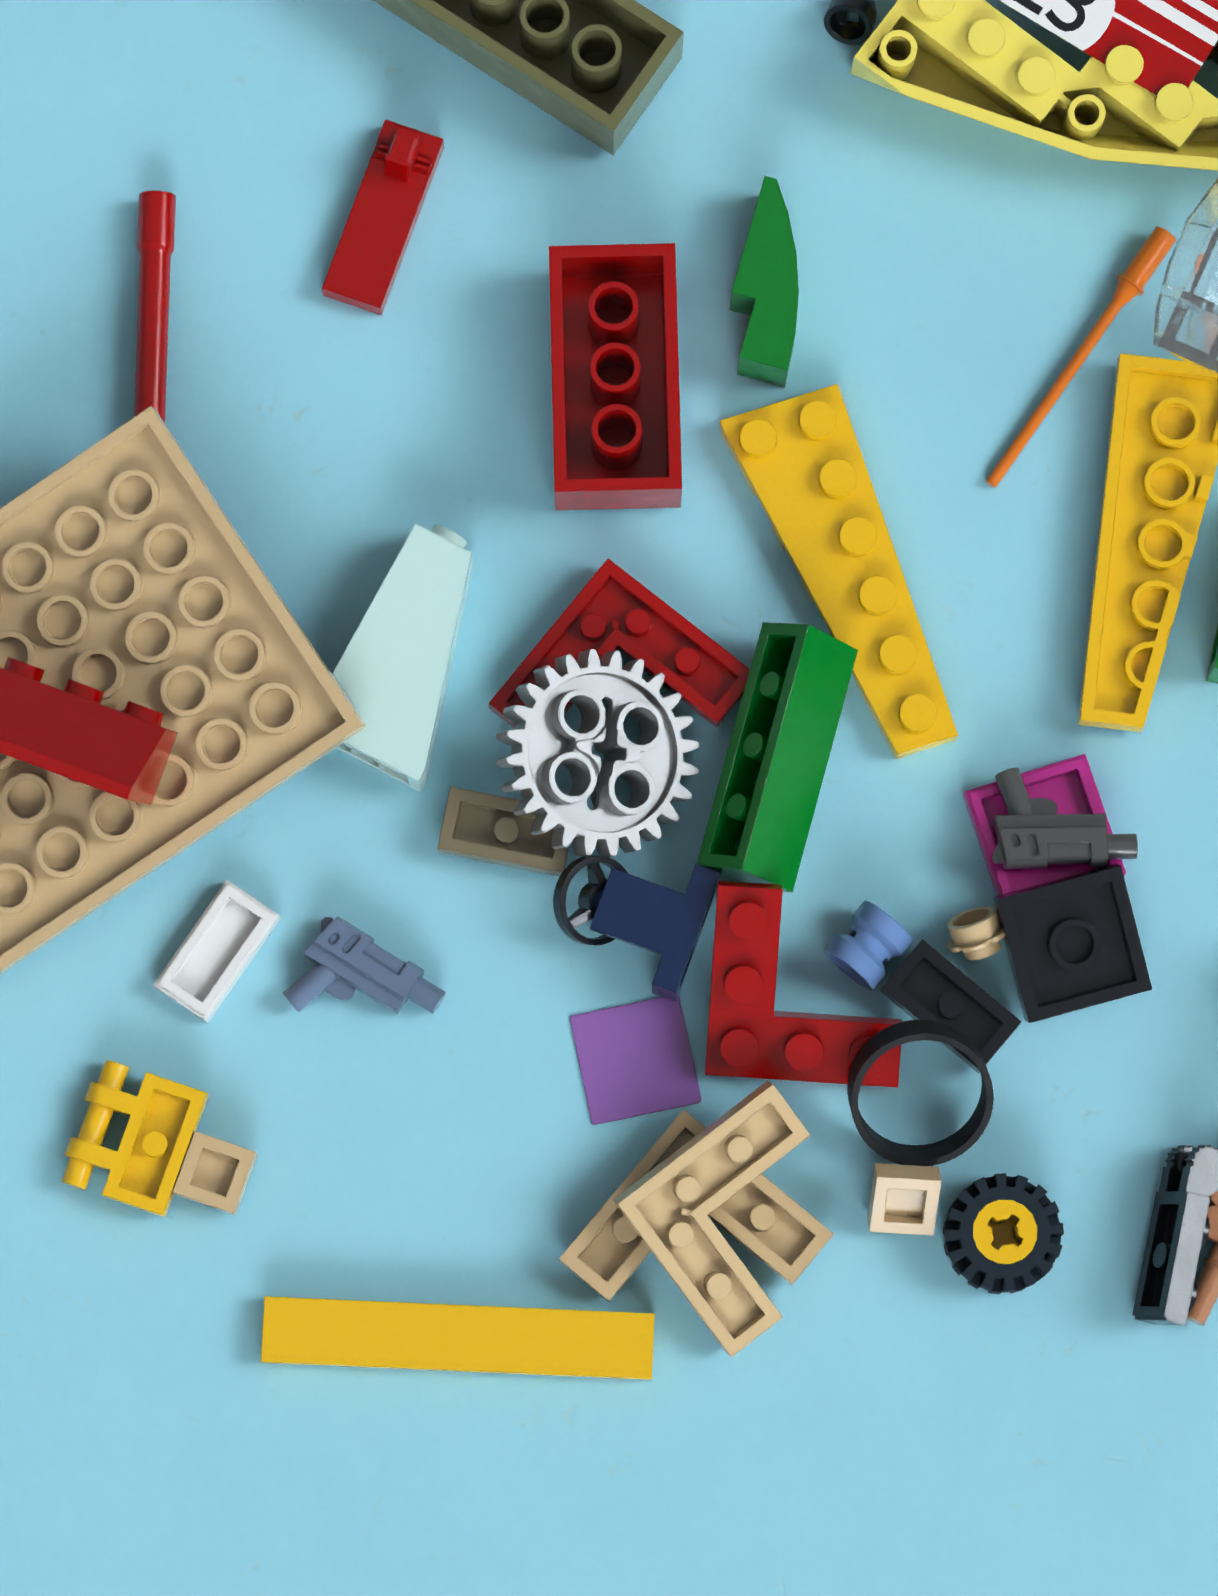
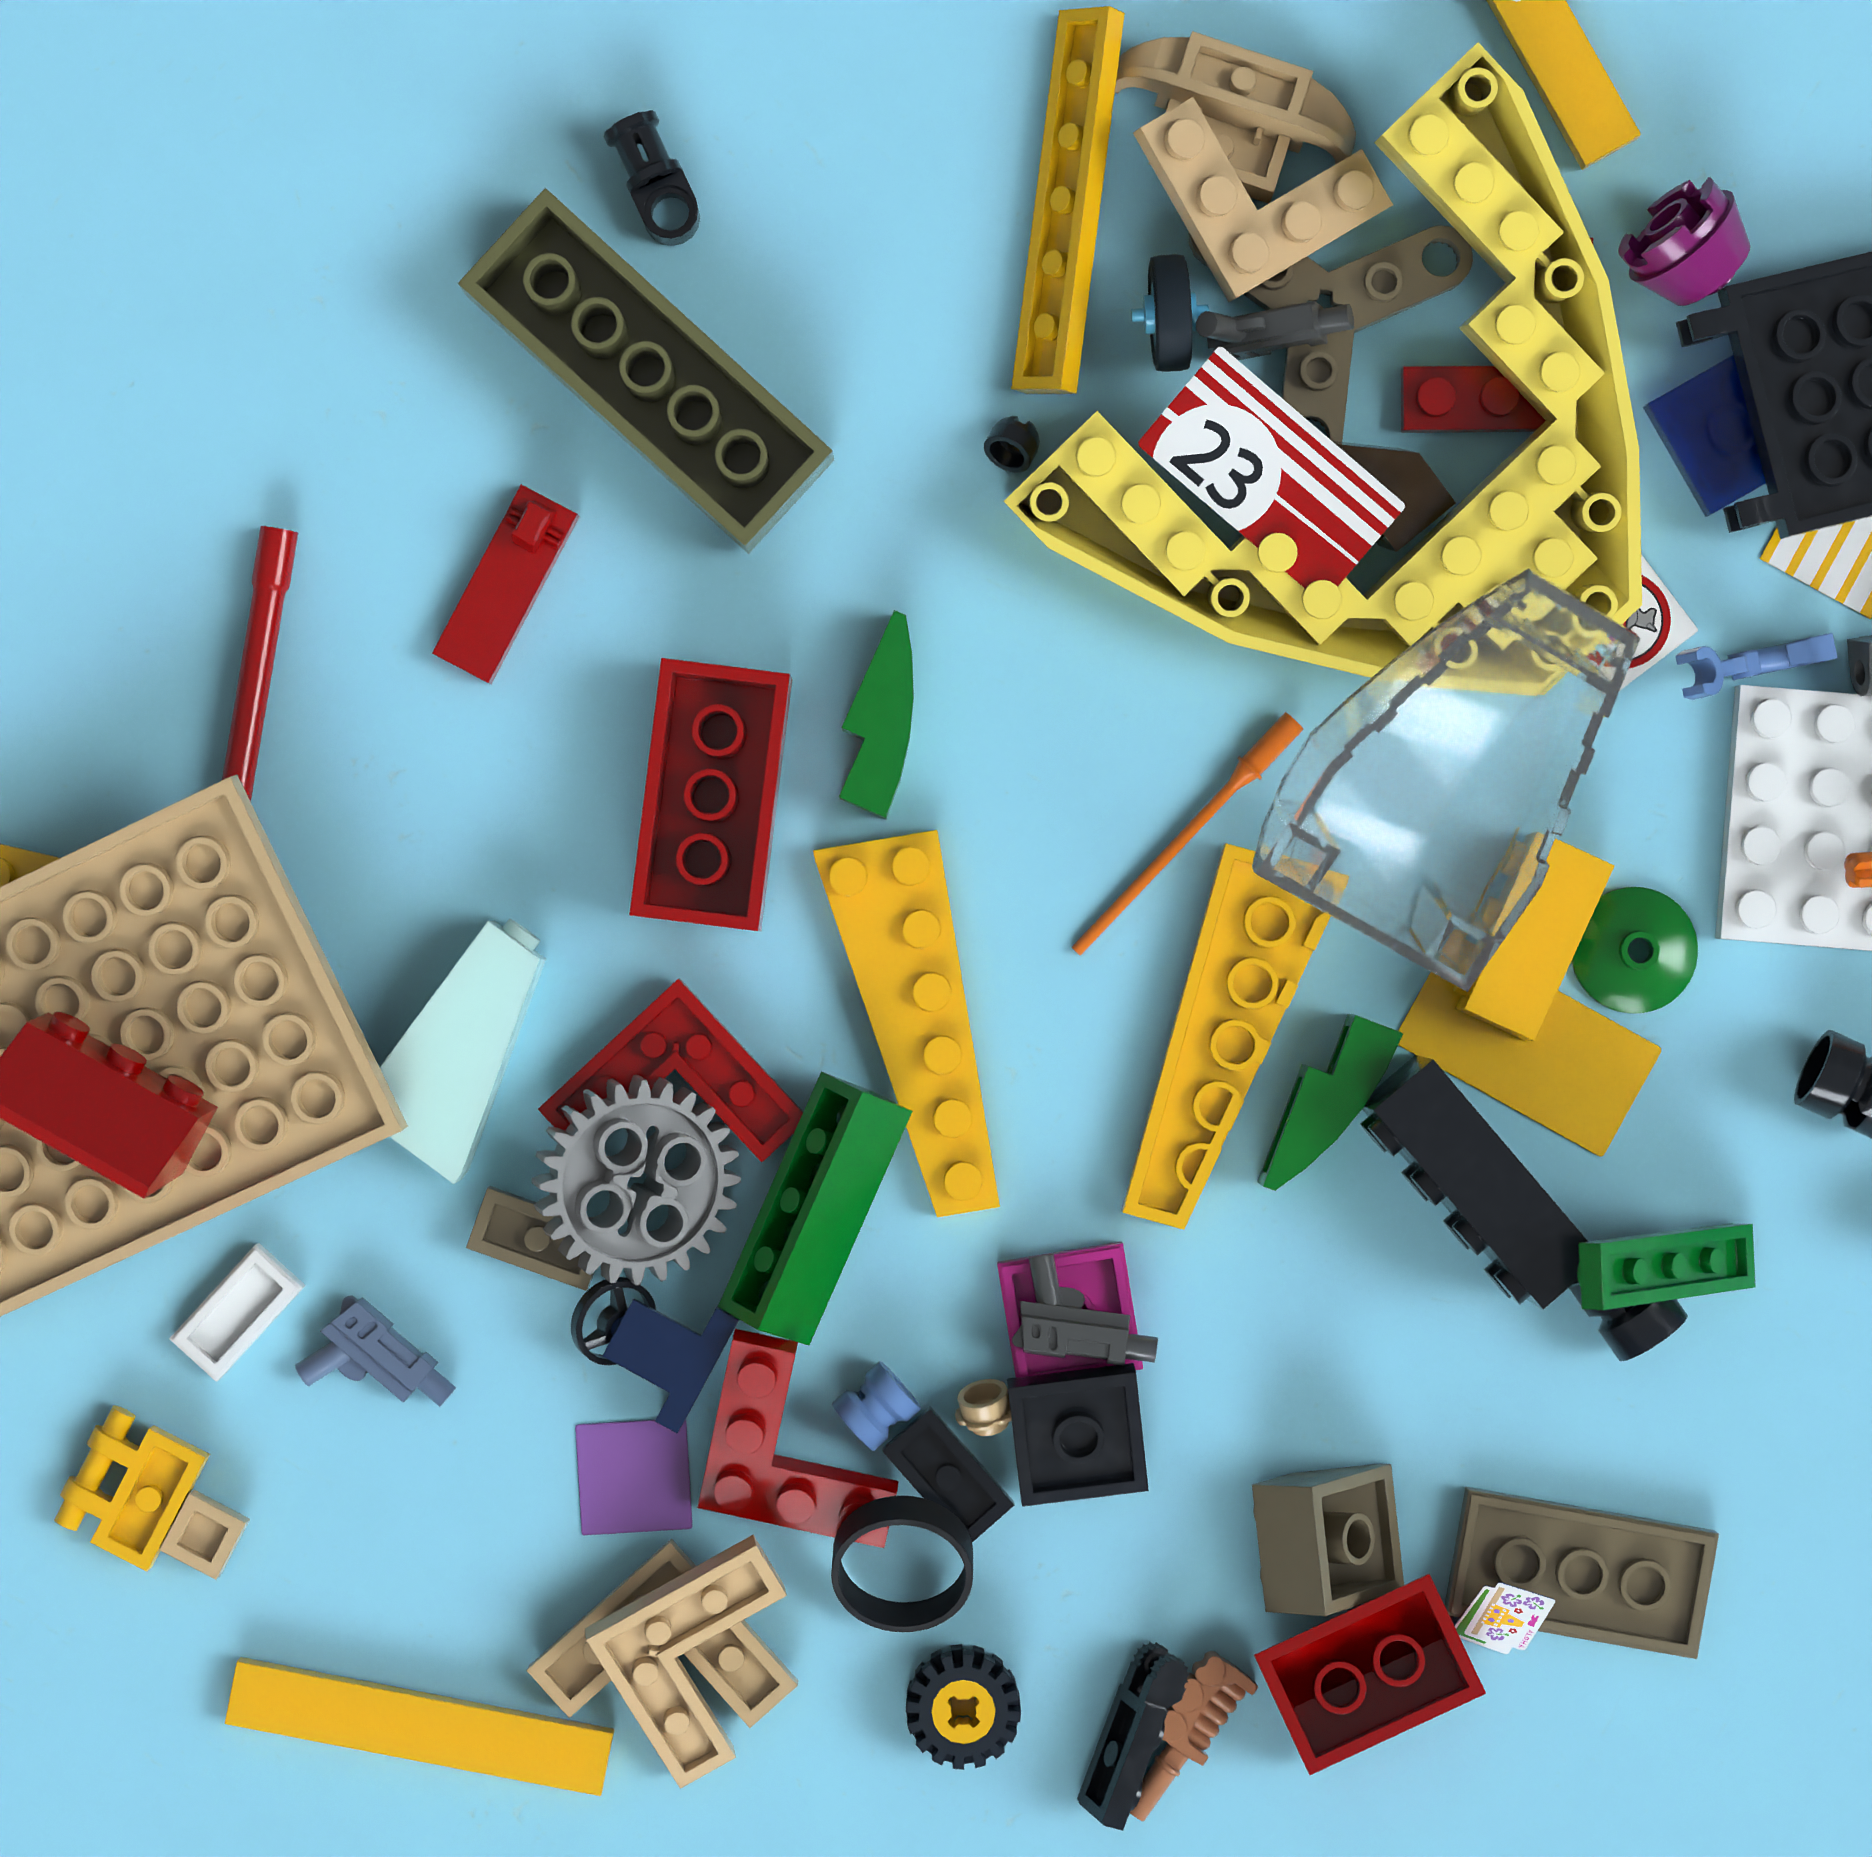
camera: 10 degrees right, 10 degrees up
(904, 1199) = (872, 1660): tan plate -> none

